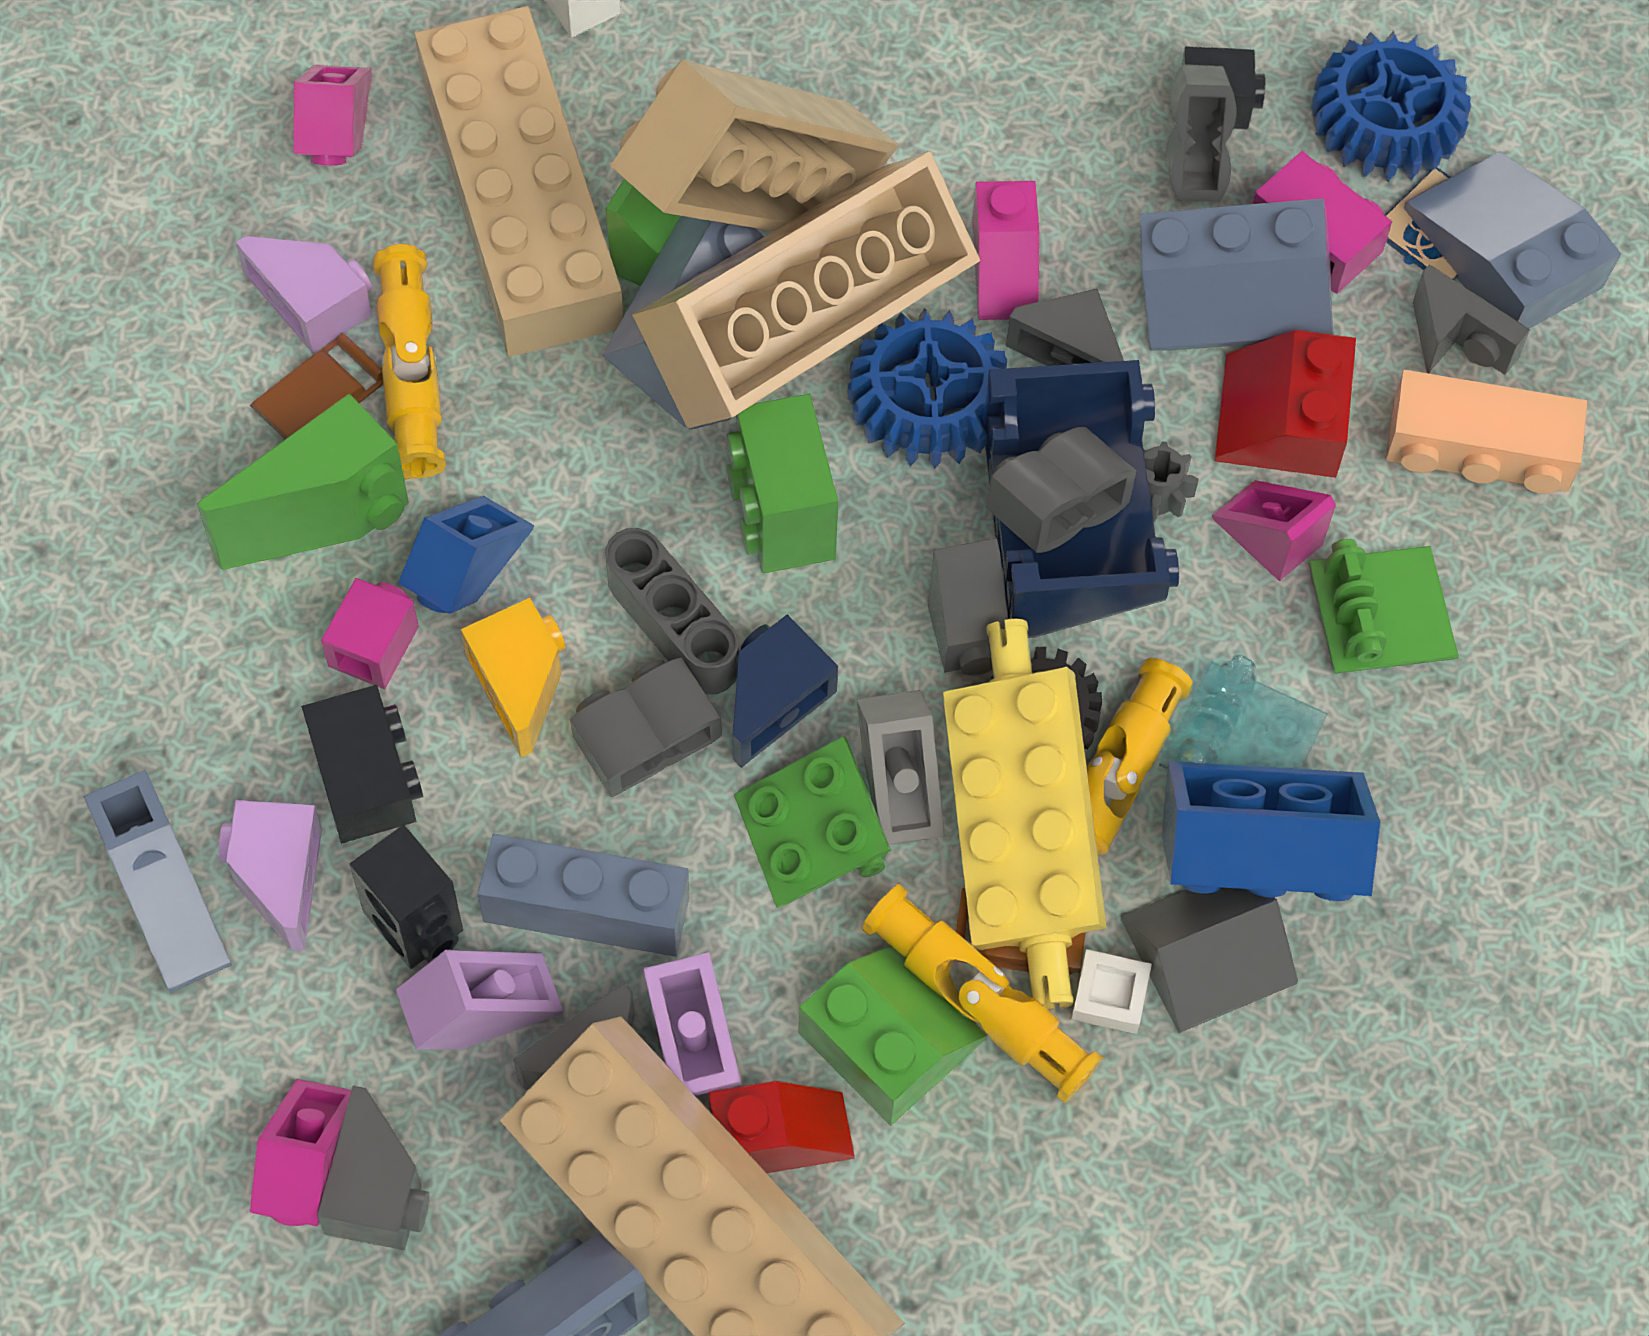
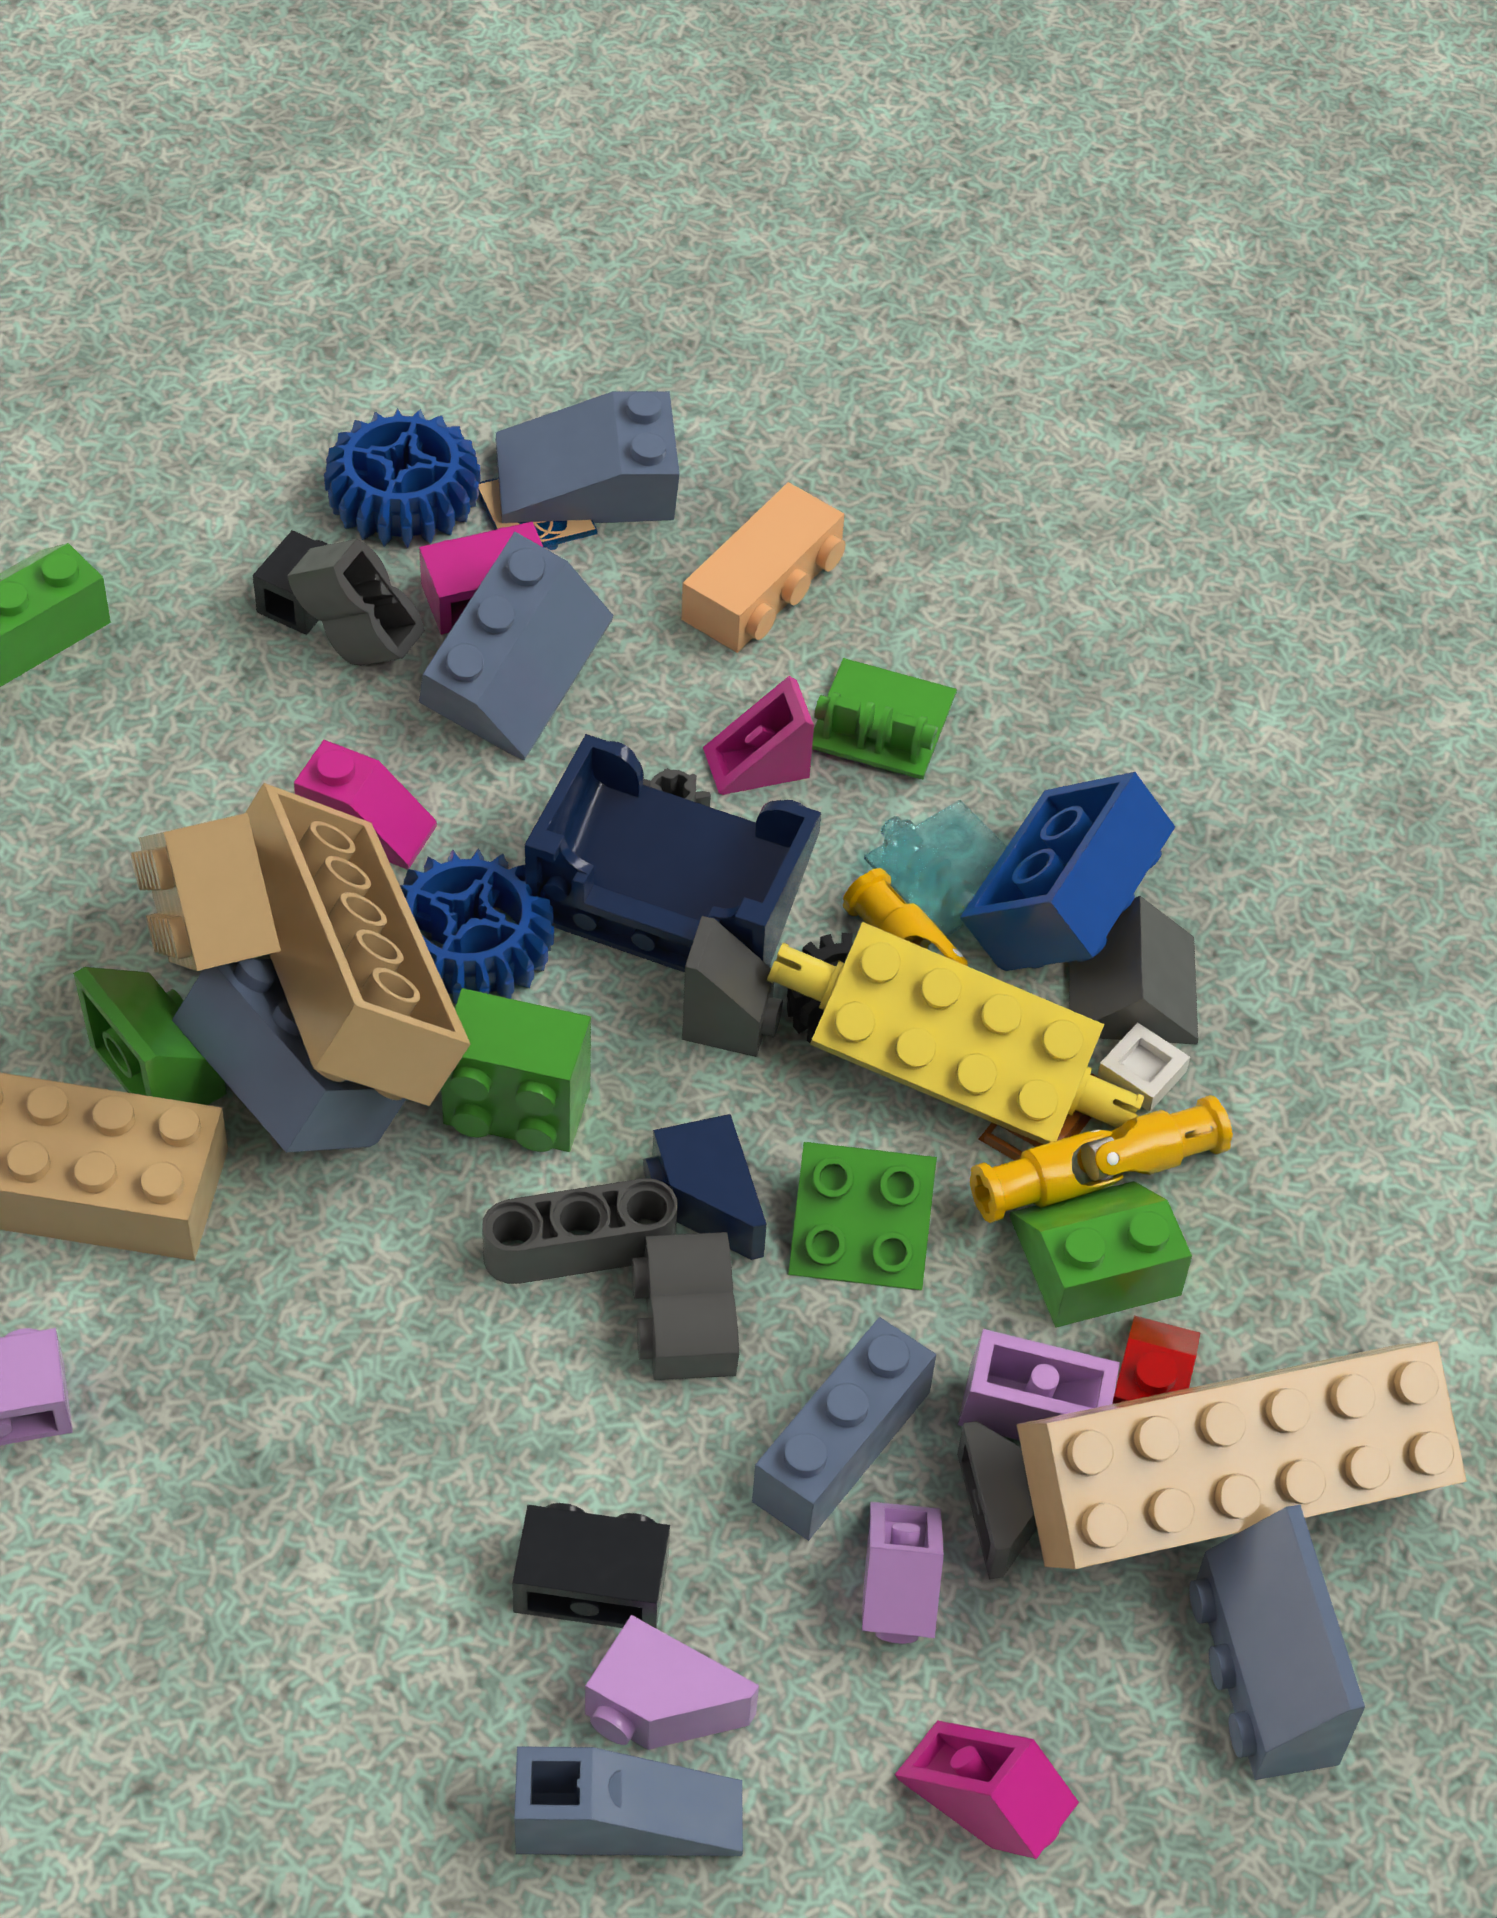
camera: 65 degrees left, 10 degrees down
(309, 491) = (272, 1443): bright green slope -> none
(315, 388) = (125, 1446): dark orange piece -> none
(370, 632) = (449, 1498): dark pink brick -> none
(372, 1181) = (1071, 1726): dark grey slope -> none
(405, 325) = (144, 1337): yellow piece -> none
(408, 897) = (782, 1569): black brick -> none
(462, 553) = (412, 1381): blue slope -> none
(517, 666) = (571, 1388): yellow slope -> none
(902, 765) = (838, 1106): light grey slope -> none
(1060, 488) = (664, 859): dark grey brick -> none
(1064, 331) = (492, 799): dark grey slope -> none
(1287, 403) = (653, 681): red slope -> none
(1453, 314) = (644, 534): dark grey slope -> none

